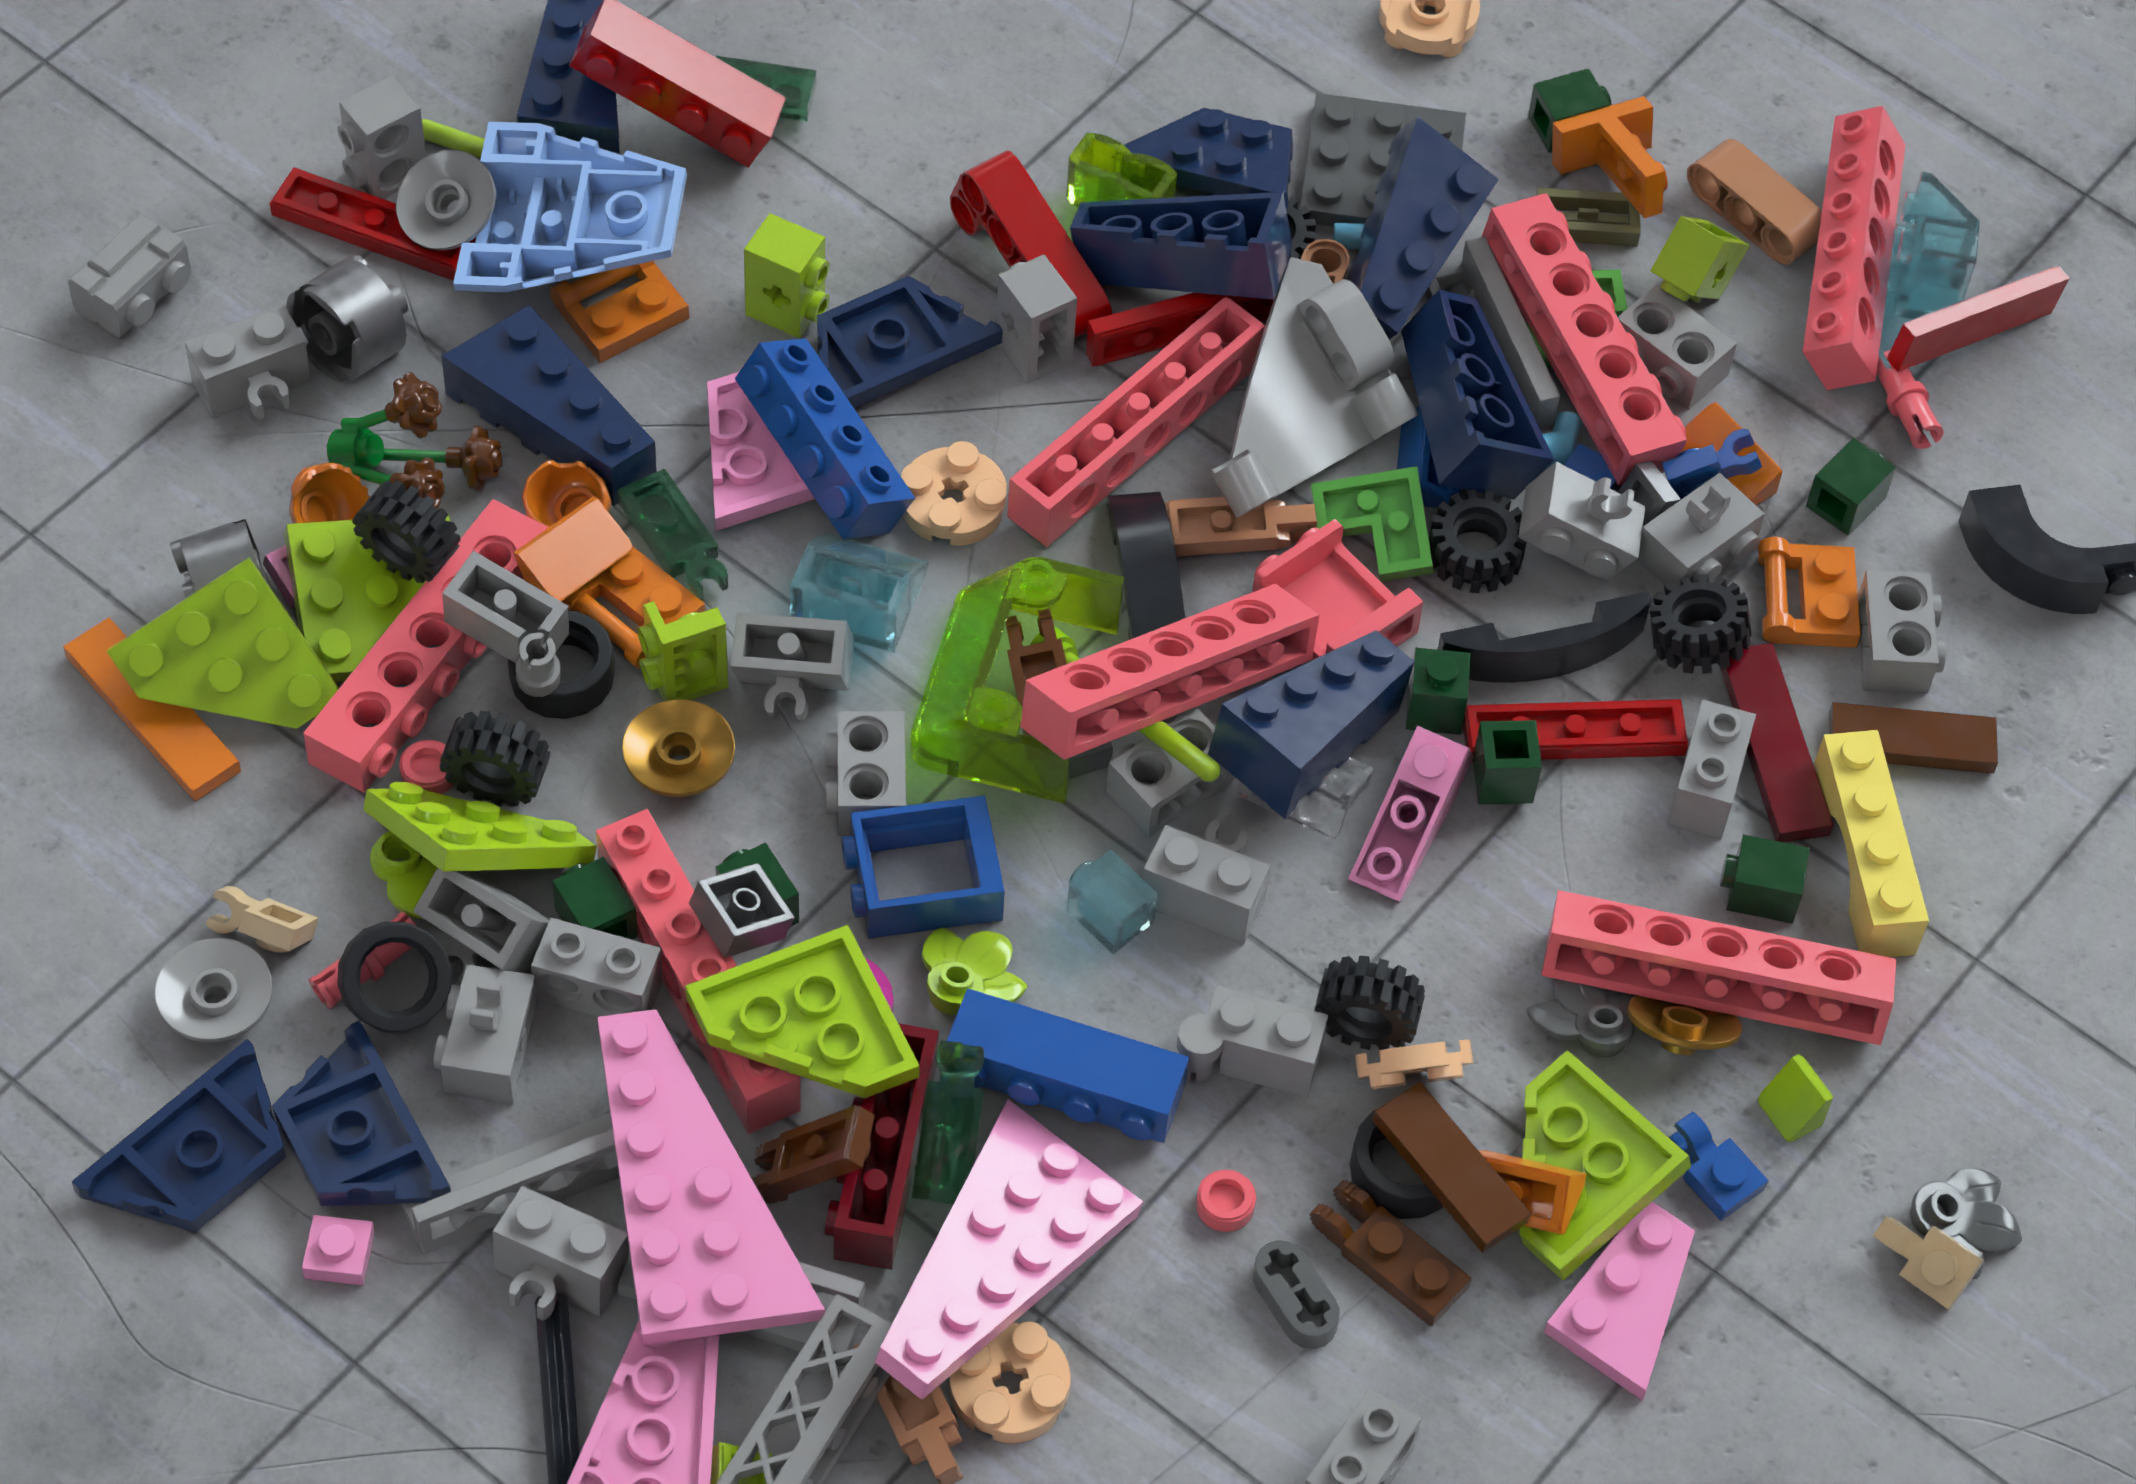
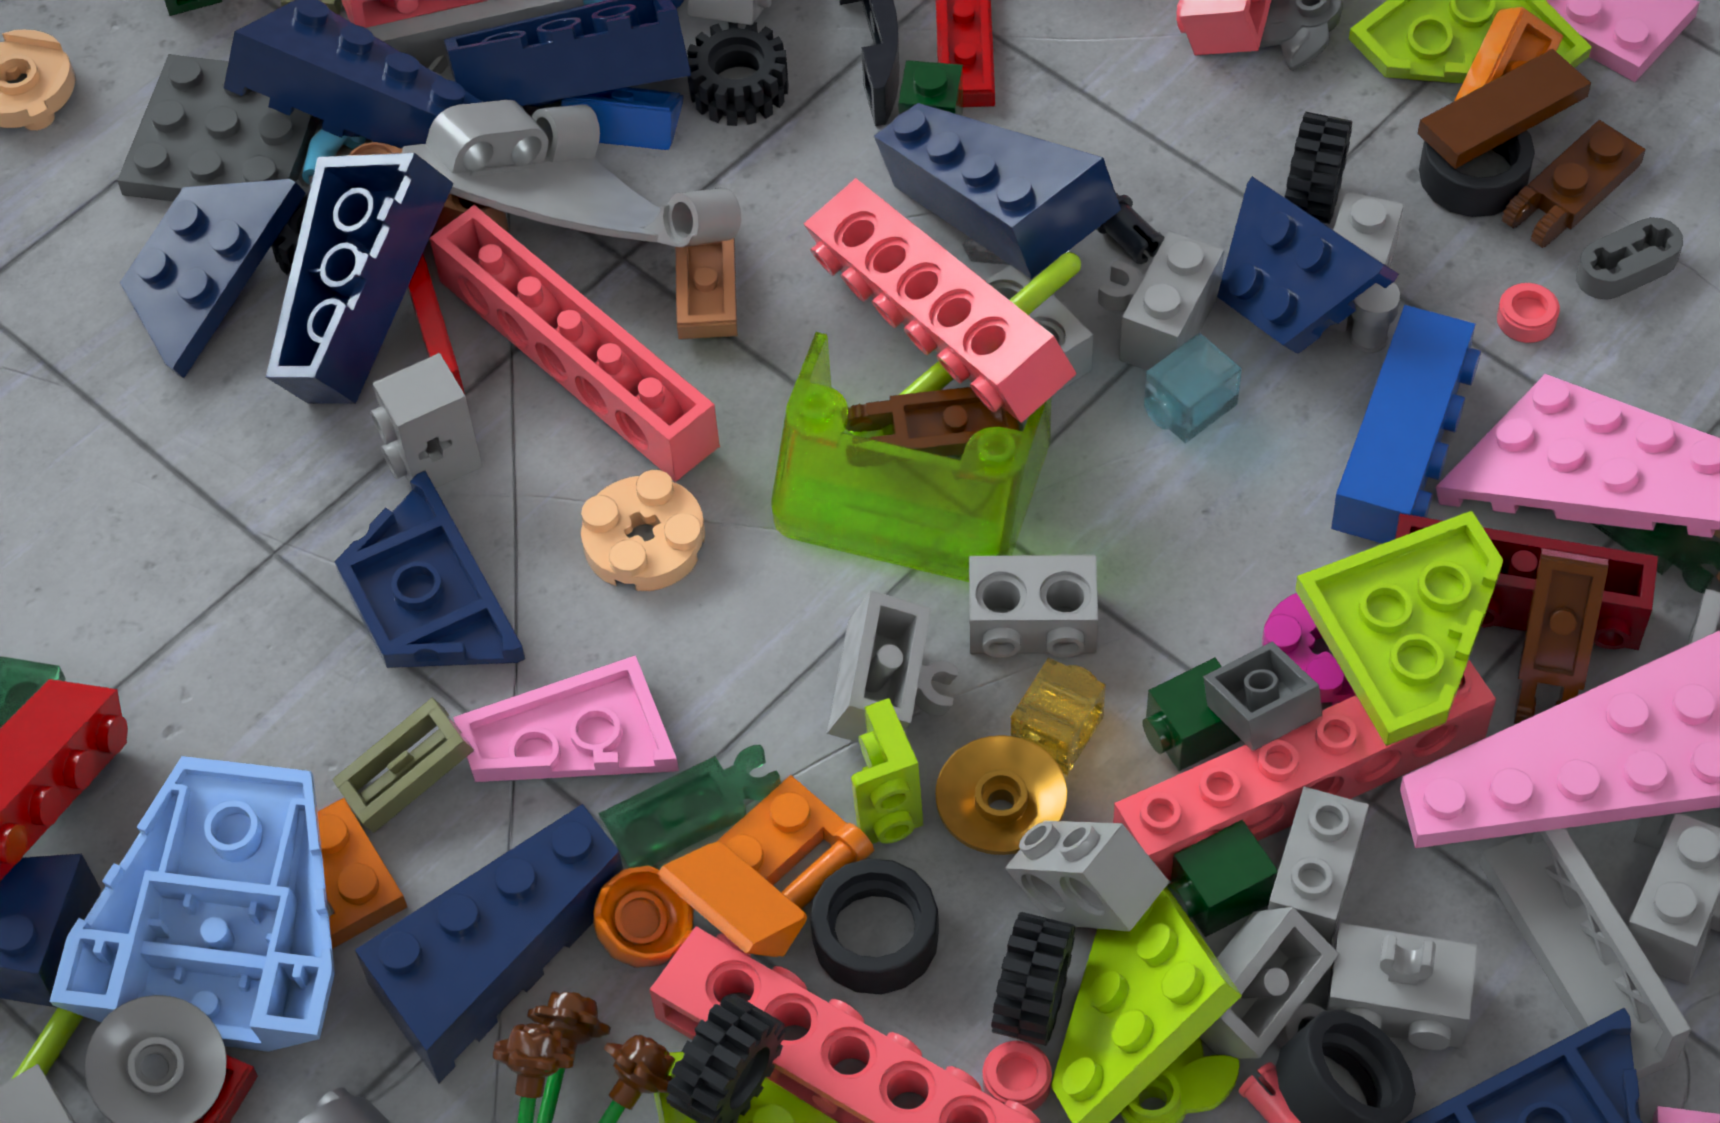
camera: 80 degrees left, 0 degrees up
(510, 620) = (864, 939): light grey hinge -> none
(581, 787) = (1087, 874): none -> light grey brick
(705, 342) = (408, 772): none -> olive tile
(757, 791) = (1060, 711): none -> clear yellow brick
(785, 276) = (334, 672): lime brick -> none
(824, 438) = (577, 637): blue brick -> none
(857, 585) = (782, 611): clear light blue slope -> none
(916, 826) = (1173, 498): blue window -> none
(949, 1124) = (1487, 510): clear green plate -> none
(969, 963) = (1276, 523): lime plate -> none
(1023, 227) = (279, 438): red beam -> none
(1109, 172) = (232, 349): clear neon green brick -> none
(1146, 561) = (772, 344): black slope -> none
(1235, 965) = (1293, 270): none -> dark blue wing
(1307, 857) = (1132, 231): none -> black pin
(1340, 590) = (807, 177): coral panel -> none
(1387, 506) = (706, 131): bright green plate -> none
(1411, 813) = (1052, 110): bright pink slope -> none
(1414, 1059) = (1387, 133): light nougat plate -> none
(1507, 762) = (1025, 51): dark green brick -> none

